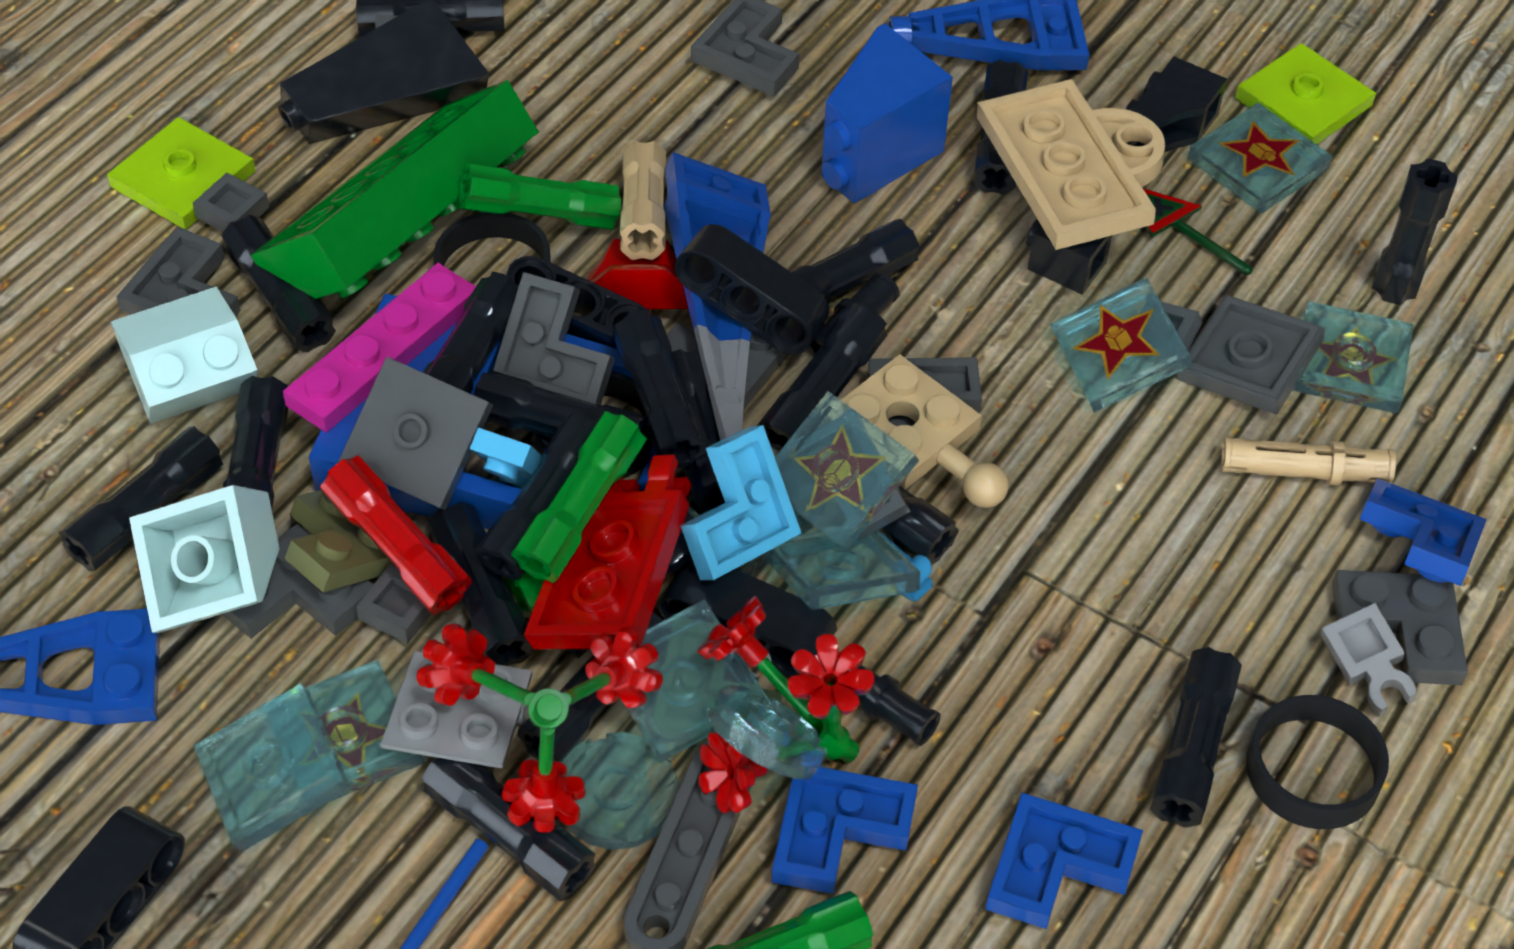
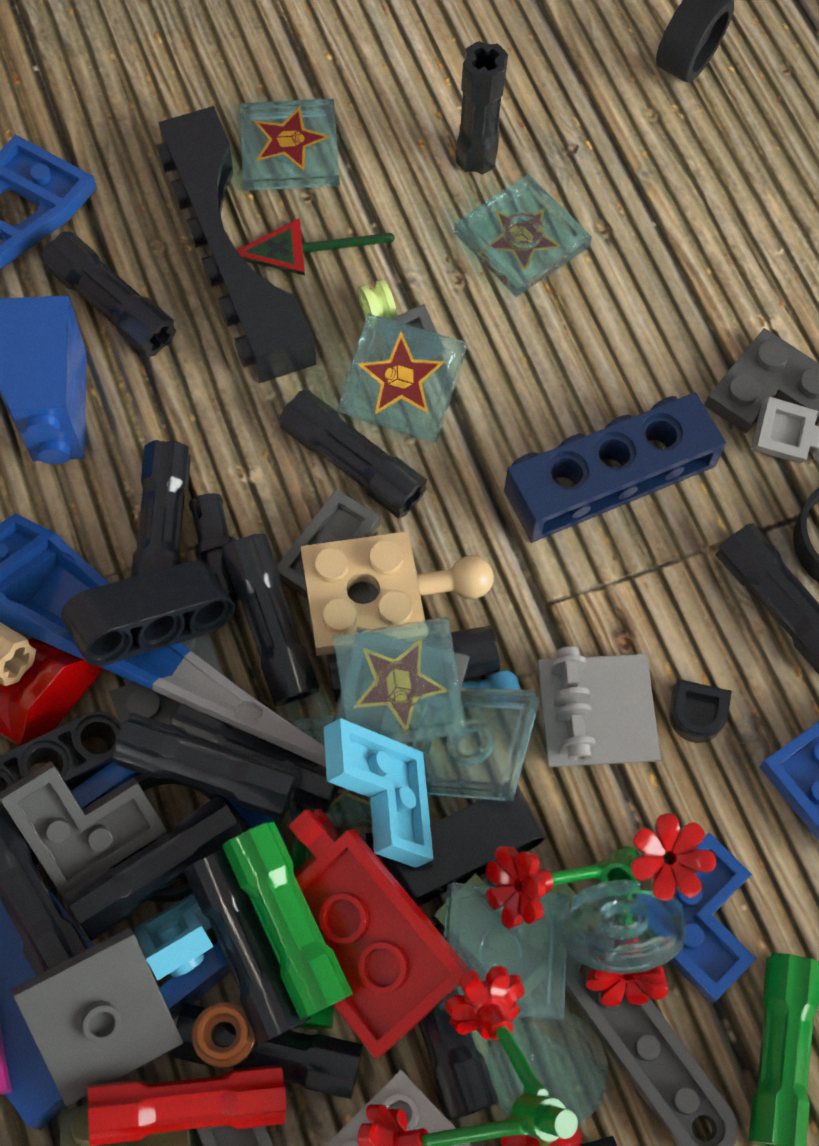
camera: 55 degrees left, 15 degrees up
(461, 517) = (209, 1021): none -> dark orange plate
(898, 709) = (604, 800): black pin -> none
(960, 652) = (597, 709): none -> light grey hinge
(1021, 368) = (382, 475): none -> black axle
(1030, 732) = (698, 710): none -> black tile
(1076, 161) = (215, 273): tan plate -> none
(1173, 288) = (377, 300): none -> yellowish green bush
(1192, 535) = (548, 508): none -> dark blue brick
(1252, 354) = (477, 295): dark grey plate -> none
(1307, 93) = (253, 65): lime plate -> none
(1324, 462) = (612, 324): tan pin -> none
(1441, 533) = (727, 303): blue plate -> none

